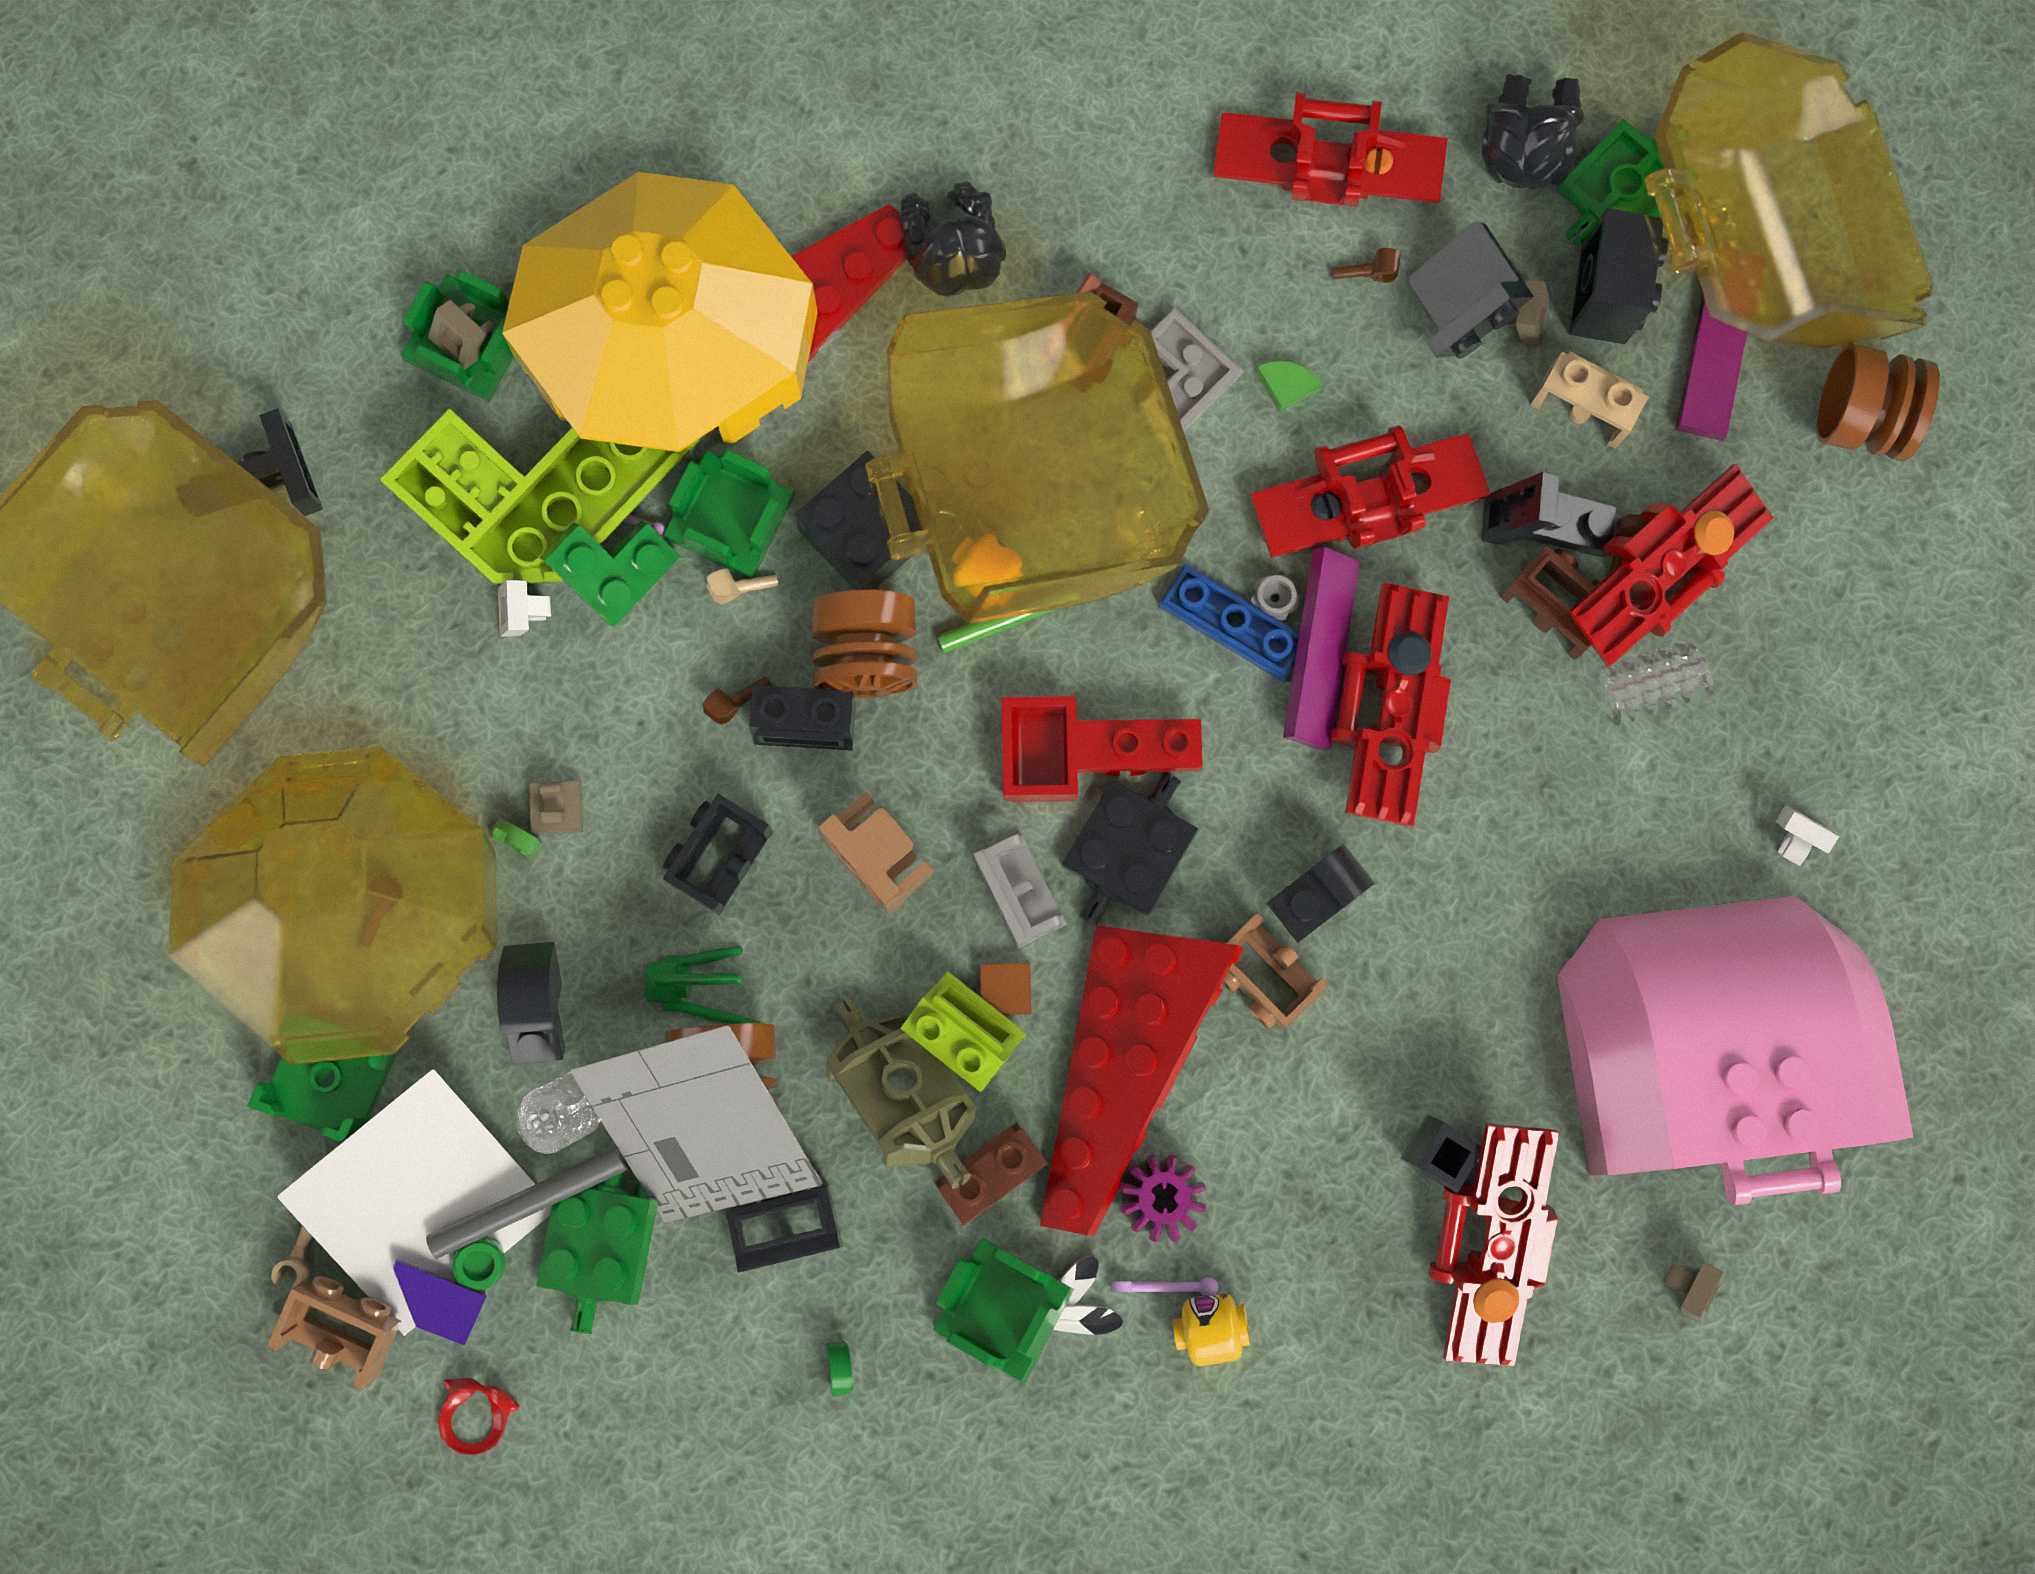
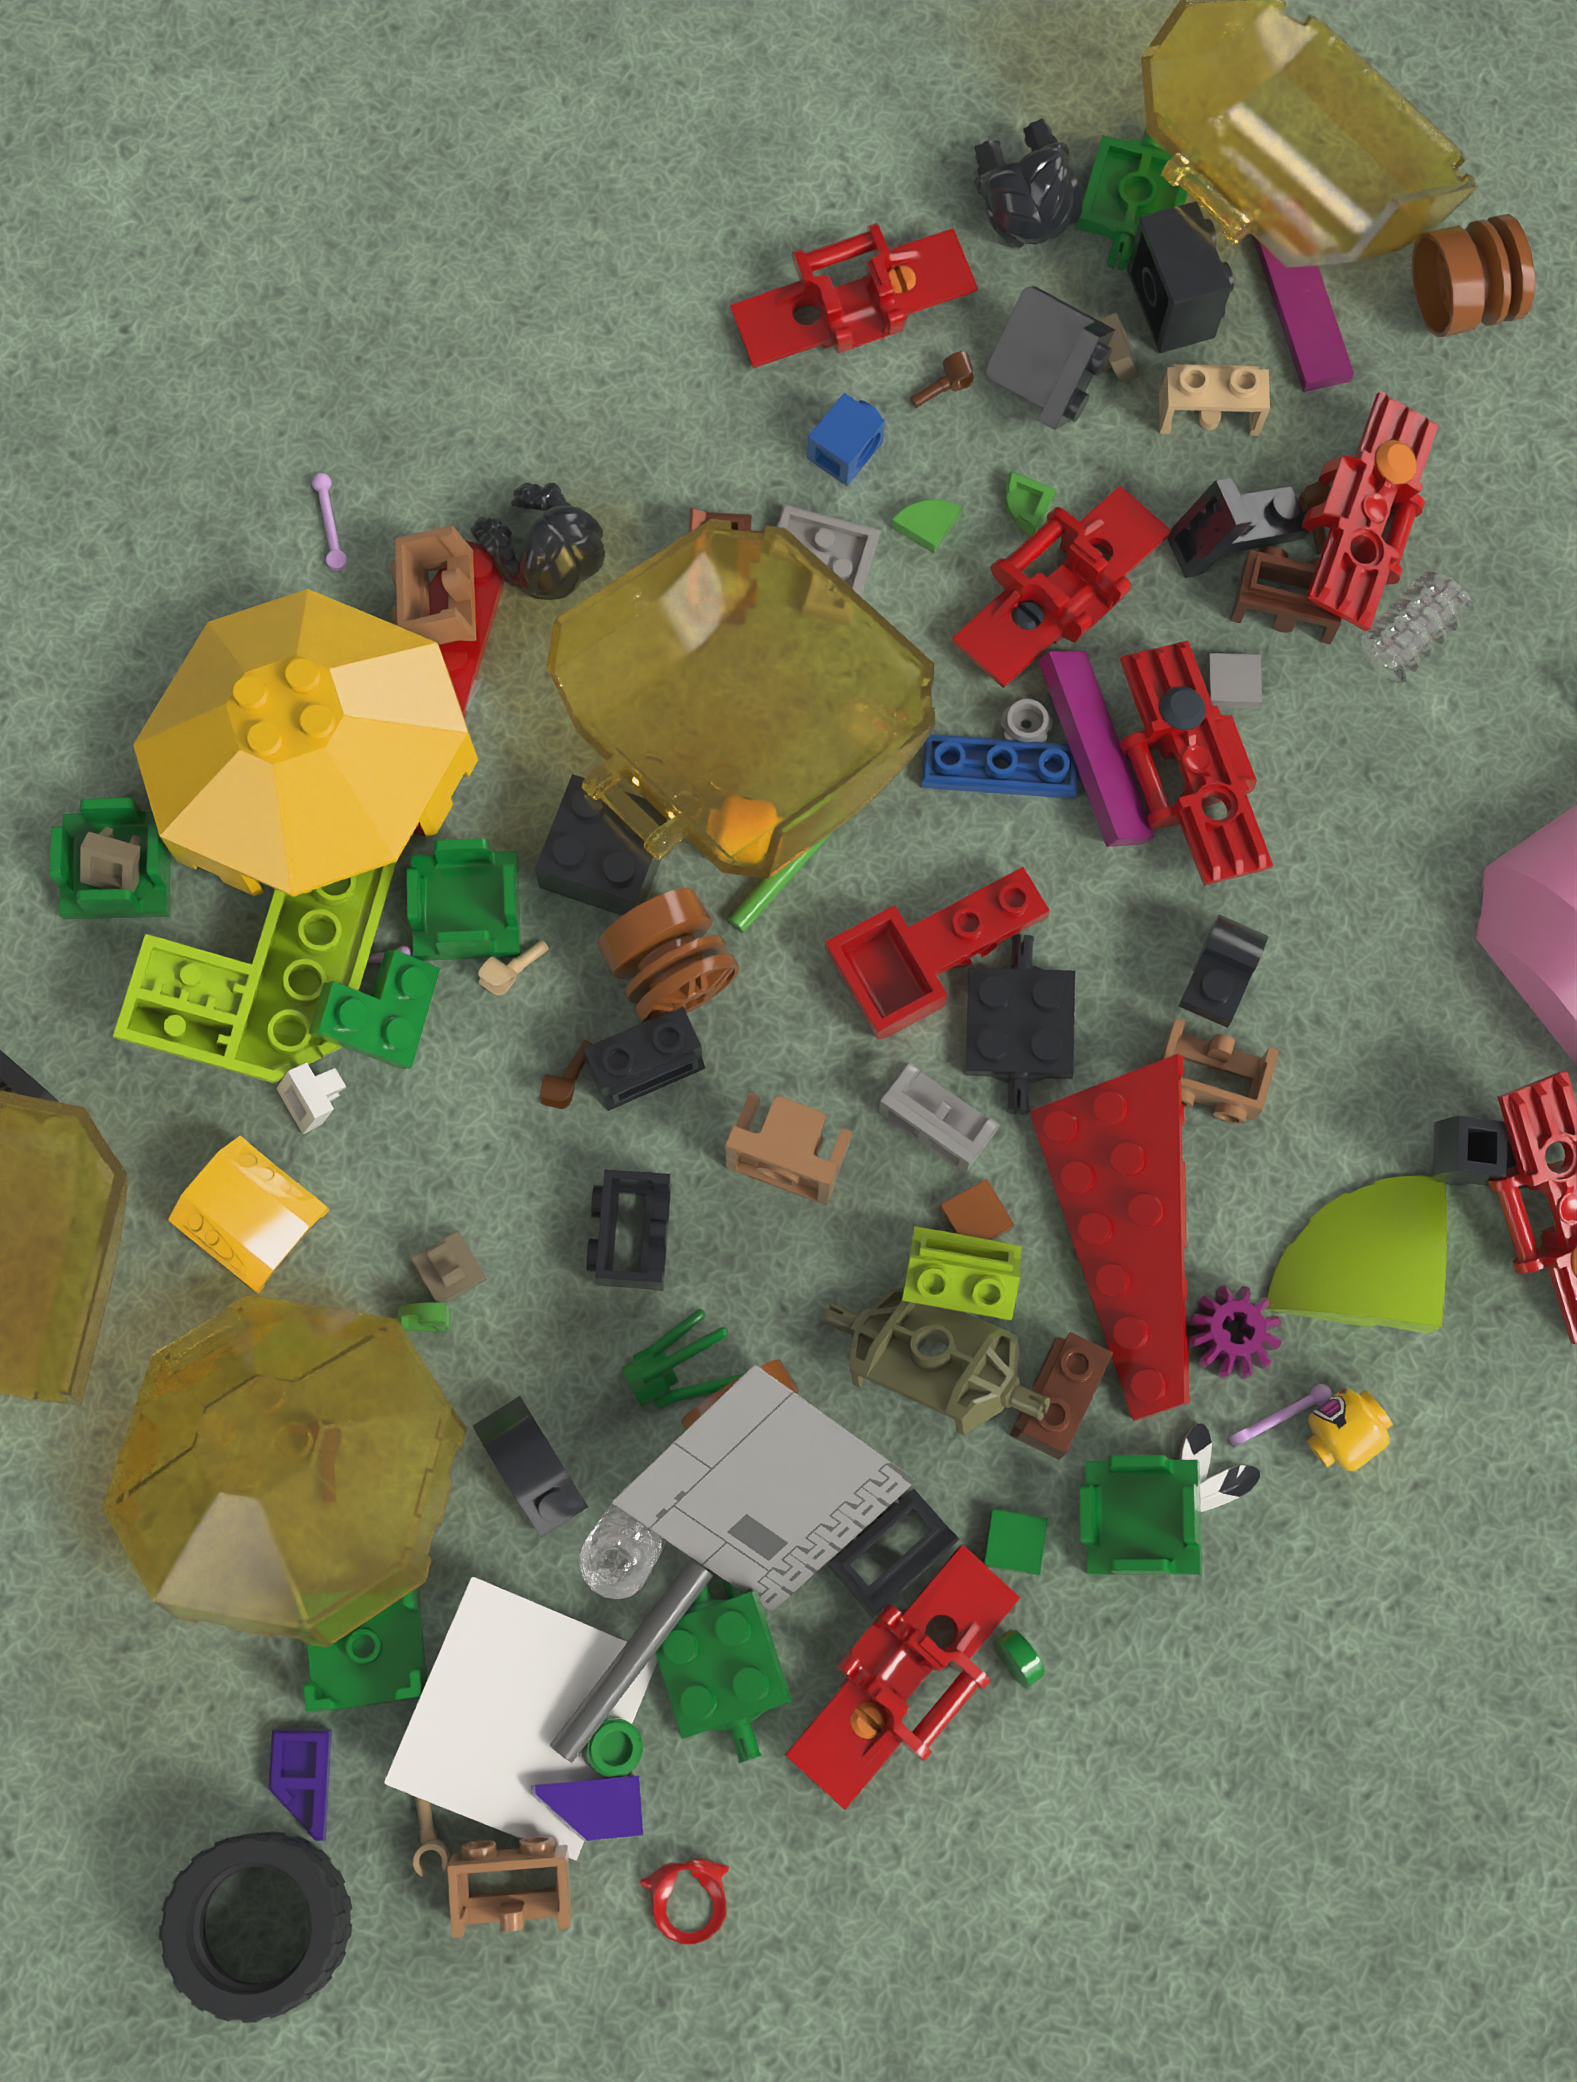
camera: 25 degrees left, 5 degrees down
(61, 1245) = (185, 1939): none -> black tyre
(227, 1152) = (301, 1776): none -> dark purple tile
(419, 677) = (246, 1212): none -> yellow slope
(729, 1317) = (888, 1664): none -> red piece
(779, 168) = (335, 558): none -> lavender hinge
(823, 225) = (409, 571): none -> medium nougat window
(889, 1272) = (1015, 1542): none -> green tile
(1256, 276) = (846, 438): none -> blue brick
(1312, 1196) = (1370, 1258): none -> lime brick
(1383, 407) = (1027, 501): none -> bright green tile
(1473, 650) = (1234, 680): none -> light grey tile

